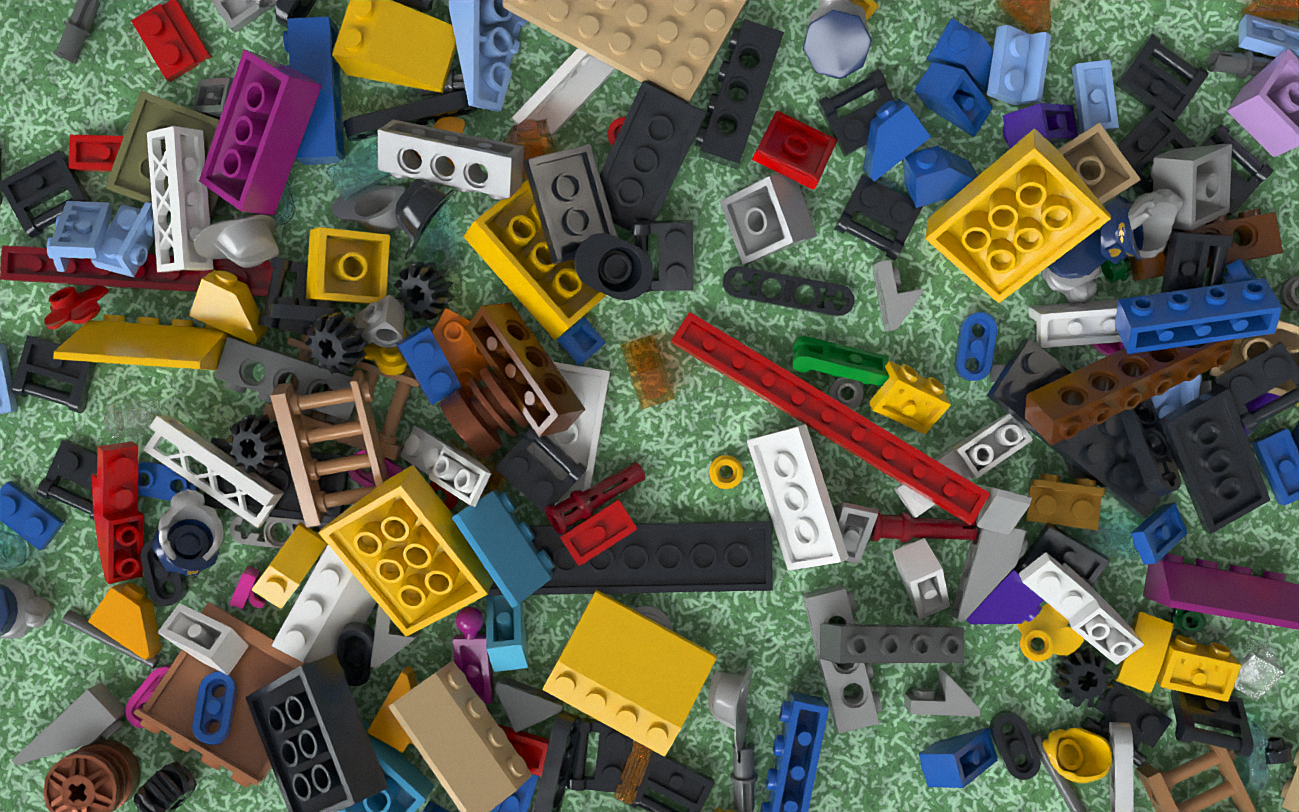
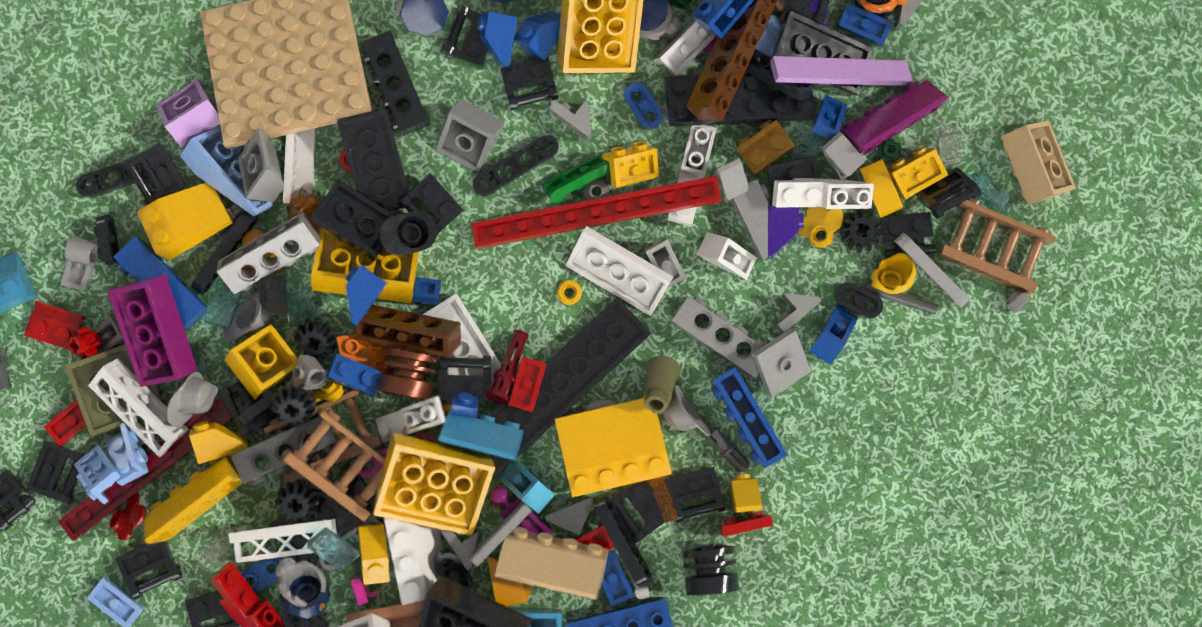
camera: 45 degrees left, 5 degrees down
(184, 84) = (84, 342): none -> red gear
(251, 525) = (333, 548): none -> clear light blue plate
(433, 663) = (499, 533): none -> light grey tile
(510, 287) = (362, 291): none -> blue slope
(514, 498) = (464, 404): none -> blue plate
(520, 61) = (260, 169): none -> light grey slope
(647, 372) = (478, 276): clear orange slope -> none
(735, 653) = (660, 382): none -> olive plant
(794, 150) = (451, 87): red plate -> none
(879, 741) = (781, 362): none -> light grey plate
(891, 643) = (737, 302): dark grey brick -> none
(907, 527) = (693, 235): dark red pin -> none
(1138, 589) = (842, 156): none -> light grey slope
(1218, 496) = (840, 71): none -> lavender tile
(1278, 751) = (1000, 178): black plate -> none

